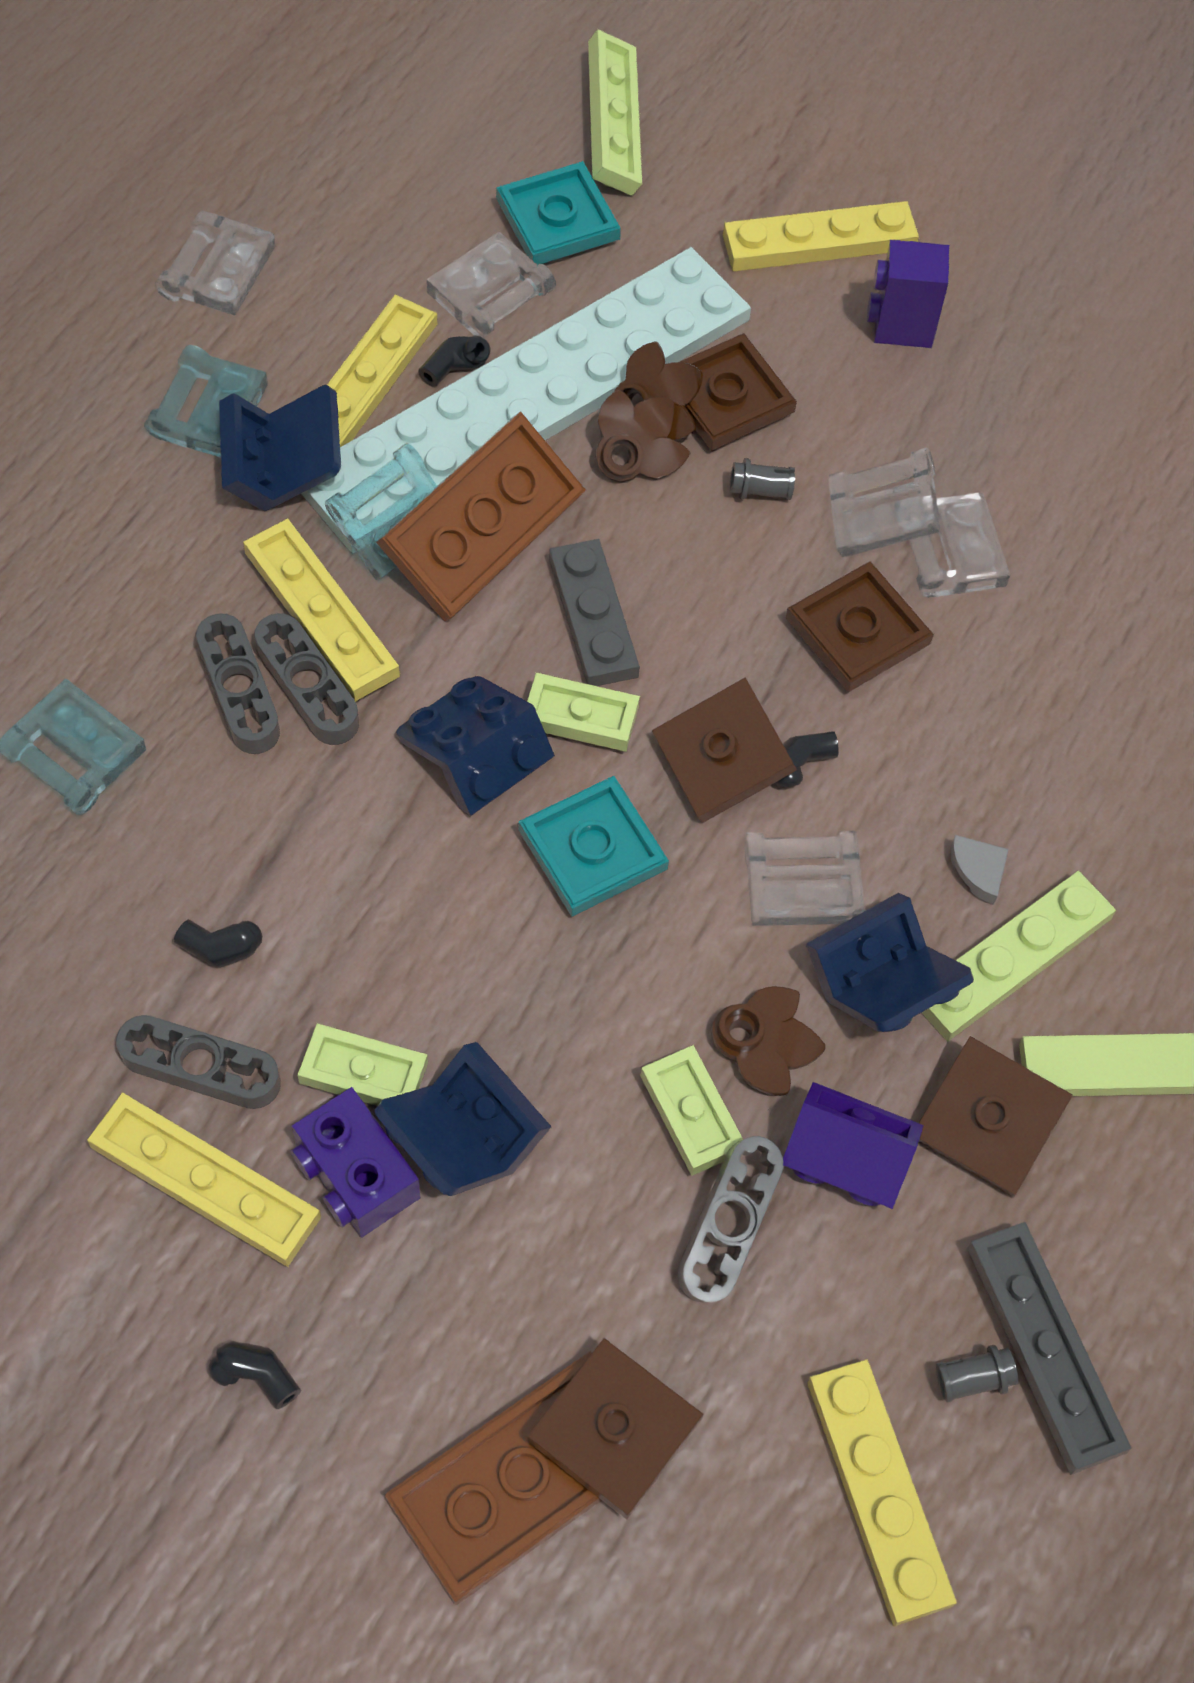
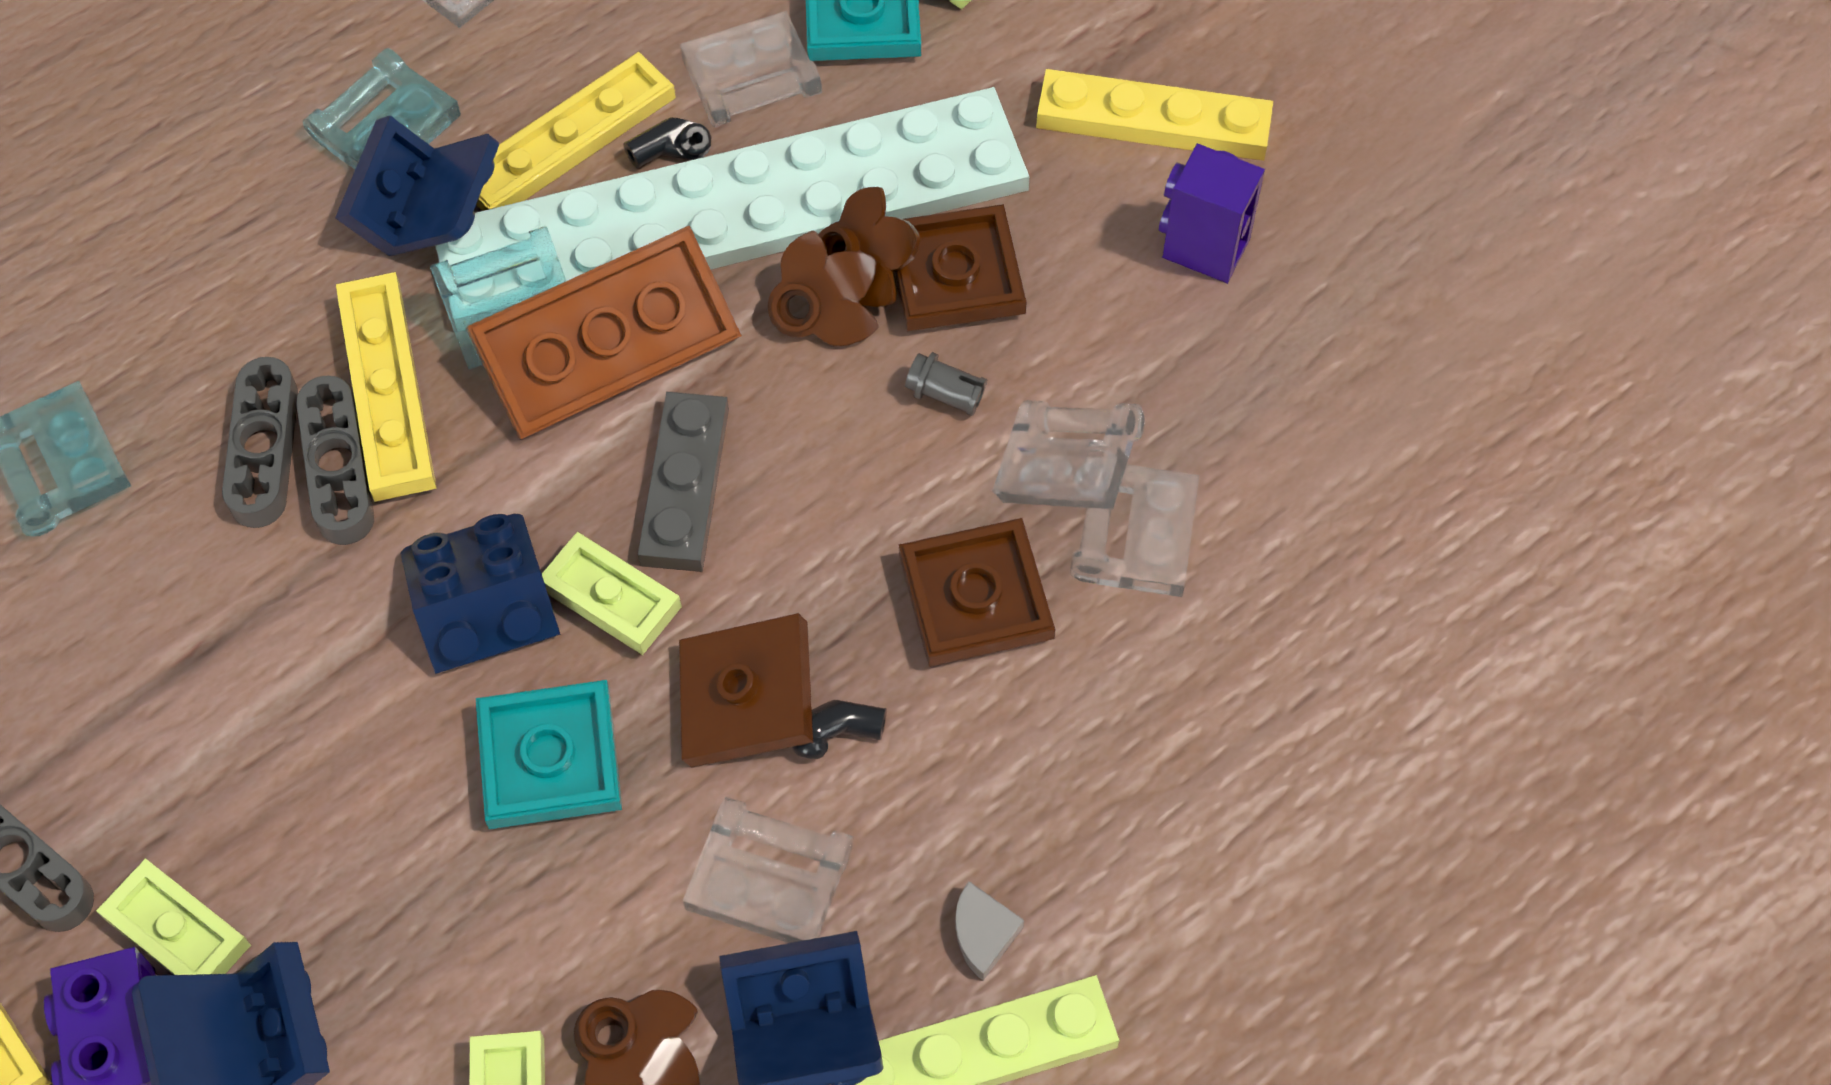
camera: 25 degrees right, 0 degrees up
(221, 946) = (99, 734): black arm -> none

